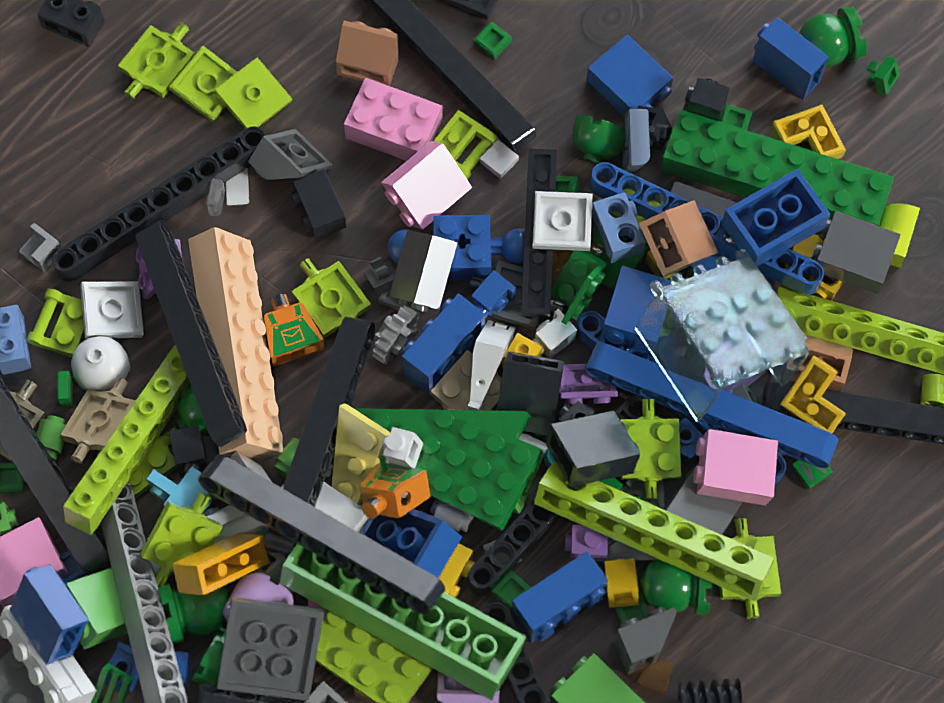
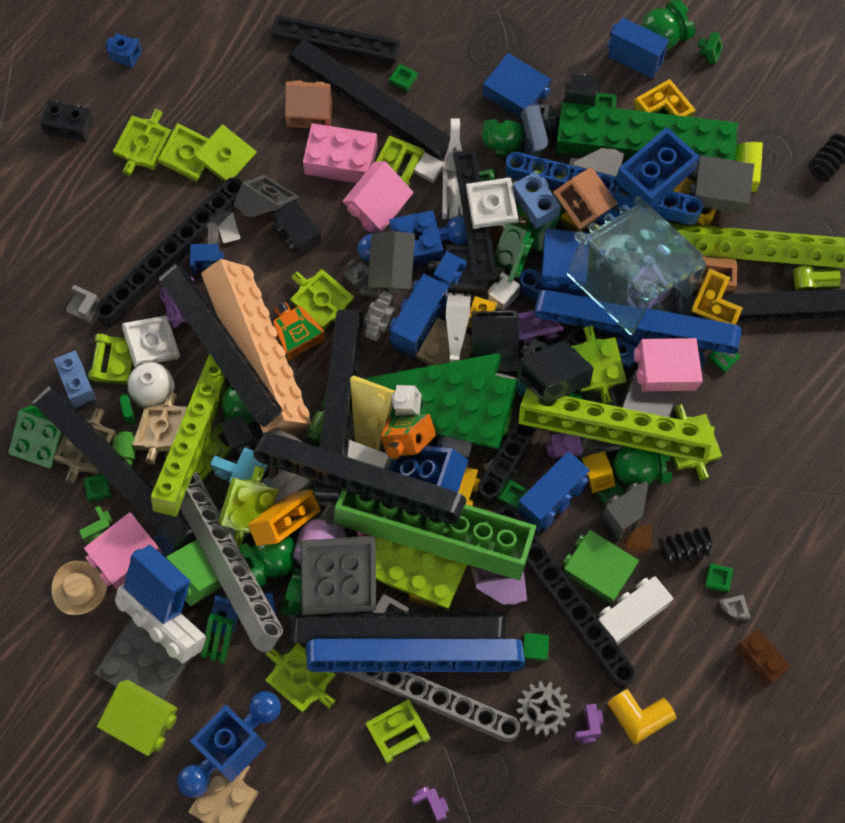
camera: 10 degrees left, 0 degrees up
(199, 218) = (204, 256): none -> blue brick
(516, 199) = (451, 195): none -> white hinge
(711, 194) = (602, 161): none -> light grey slope

